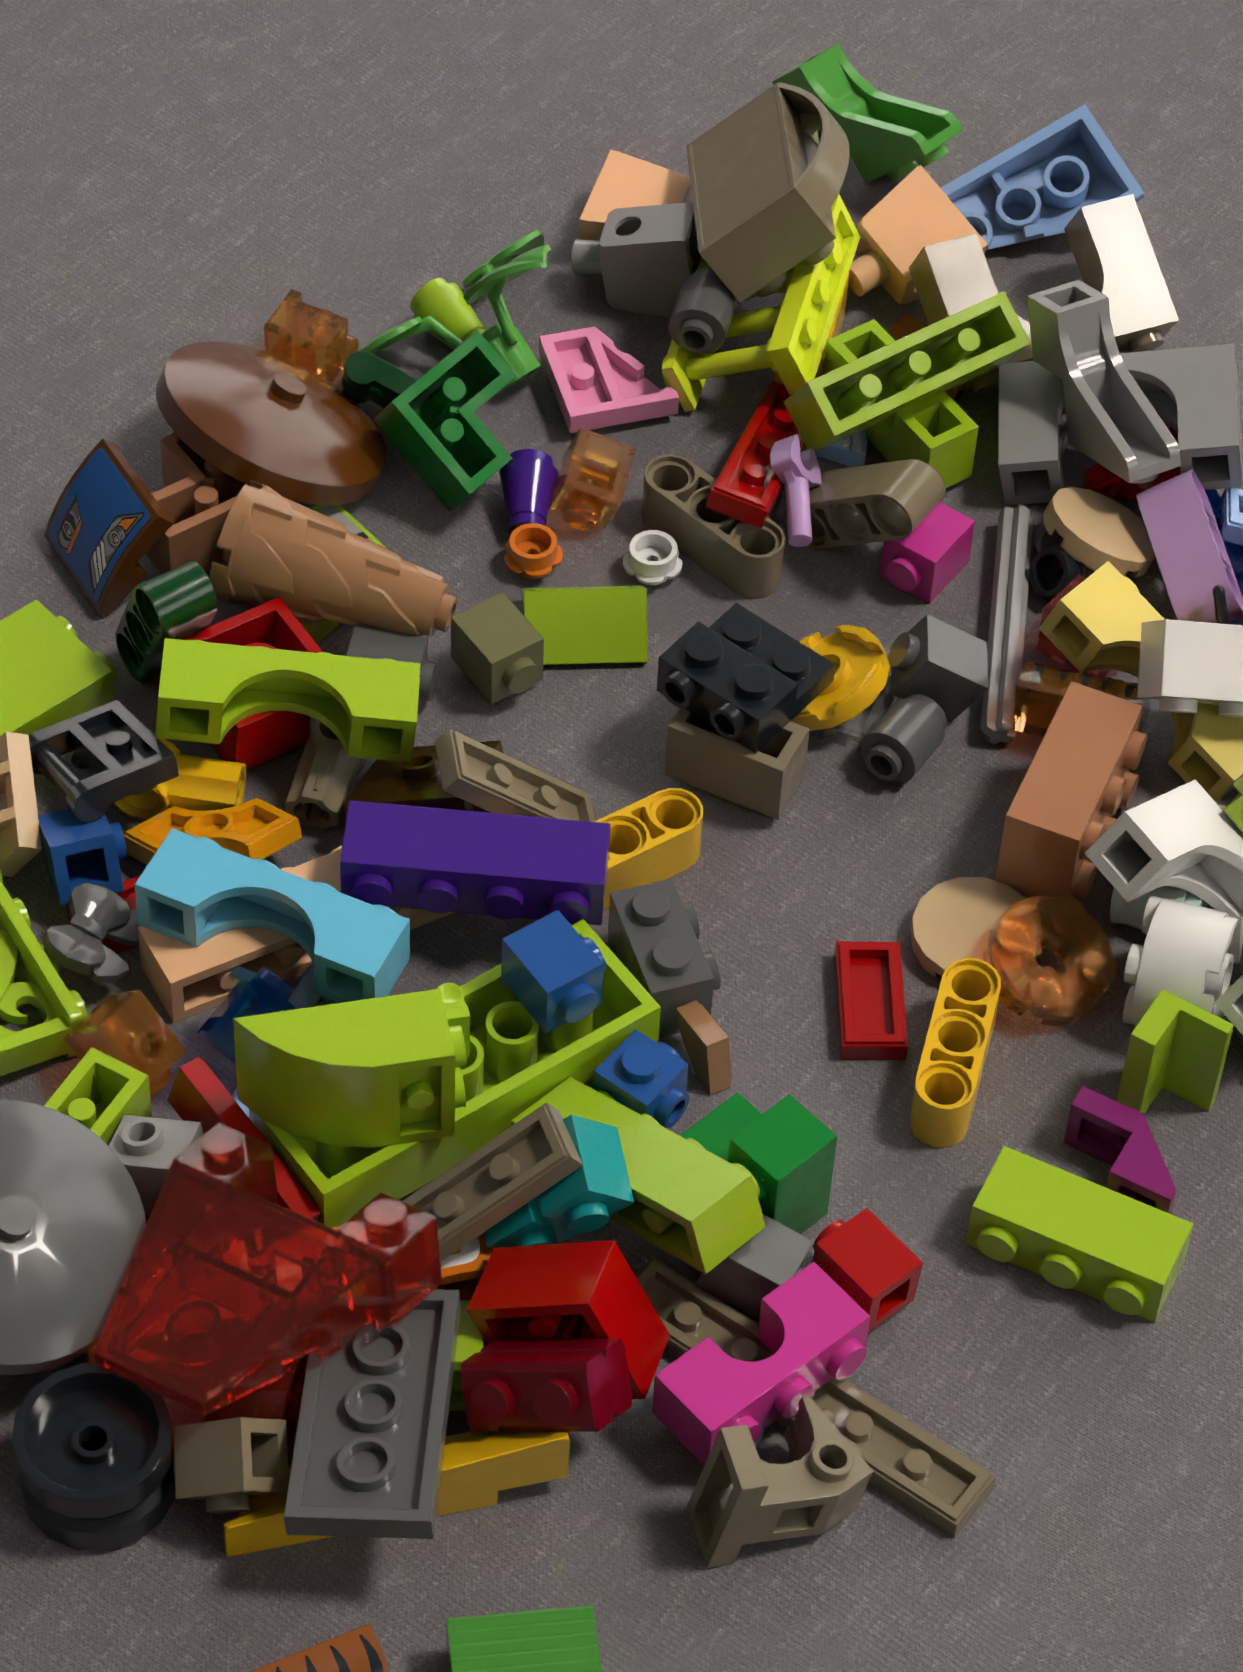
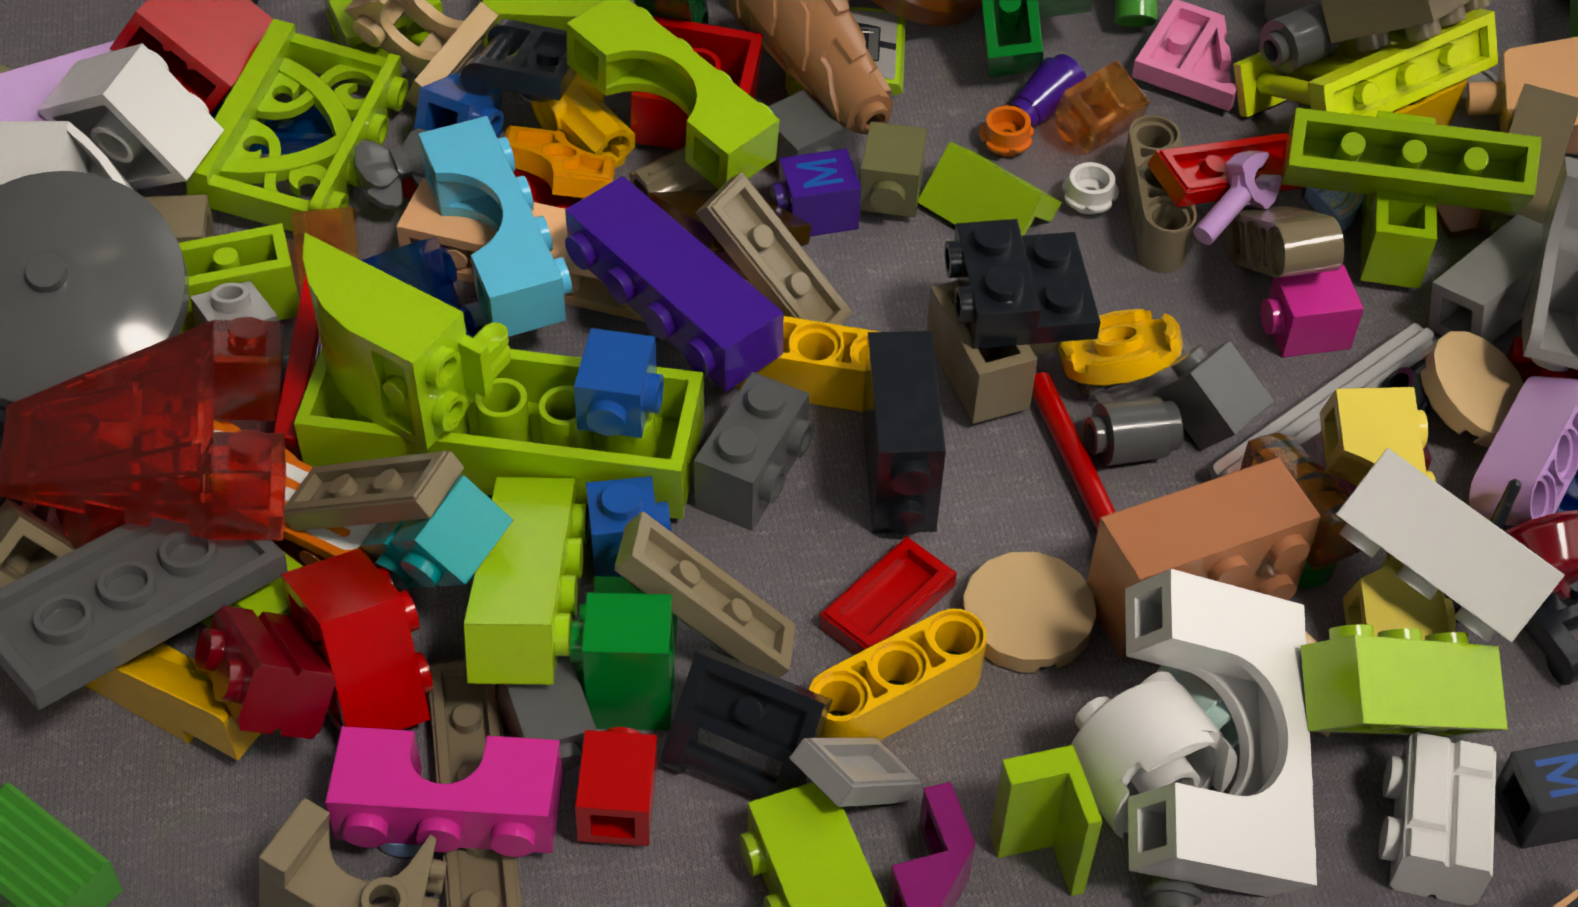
camera: 45 degrees right, 0 degrees up
(458, 700) = (820, 190): none -> dark purple brick
(706, 1046) = (713, 524): medium nougat tile -> none
(759, 1083) = (705, 596): none -> dark tan plate
(766, 859) = (903, 432): none -> black brick
(902, 1143) = (748, 710): none -> black plate
(903, 803) = (1071, 448): none -> red bar
(1011, 1129) = (855, 771): none -> light grey tile
(1076, 940) = (1035, 634): clear orange plate -> none

